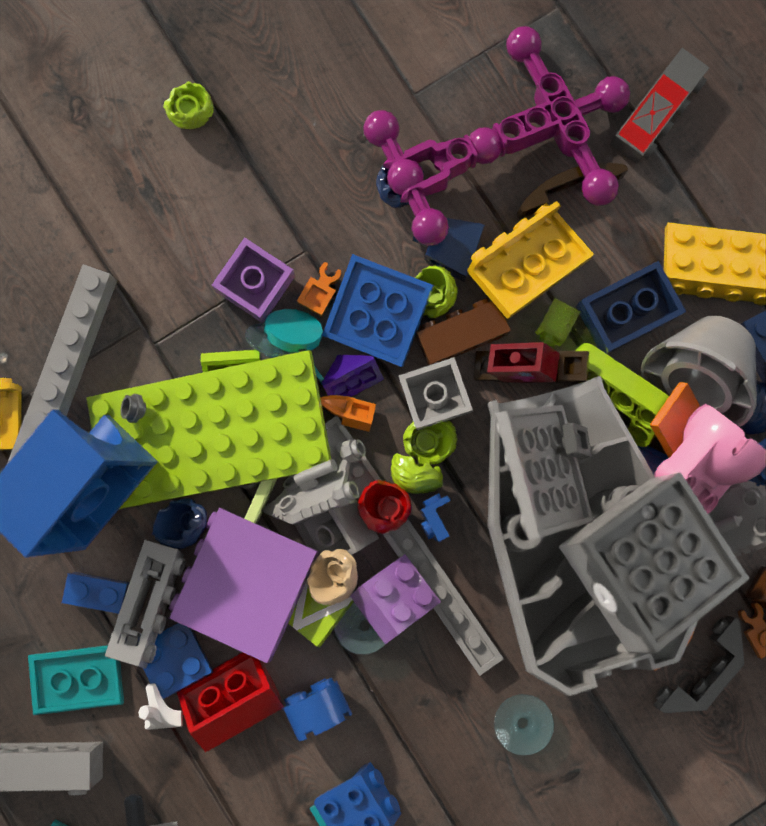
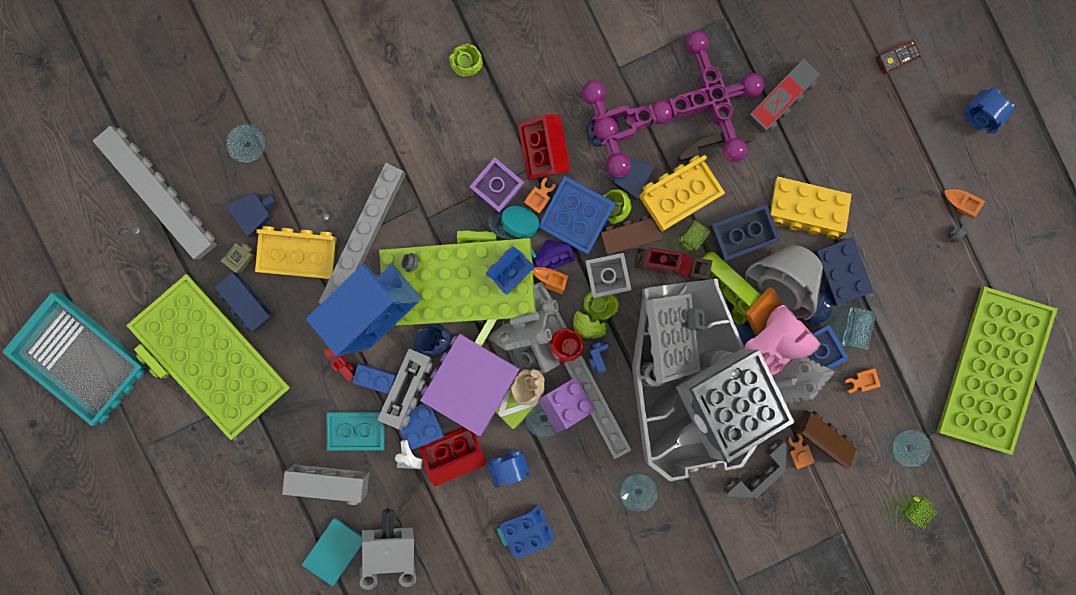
camera: 10 degrees right, 5 degrees up
(41, 576) = (339, 363): none -> red plate
(284, 398) = (510, 270): none -> blue bracket
(318, 217) = (544, 147): none -> red slope

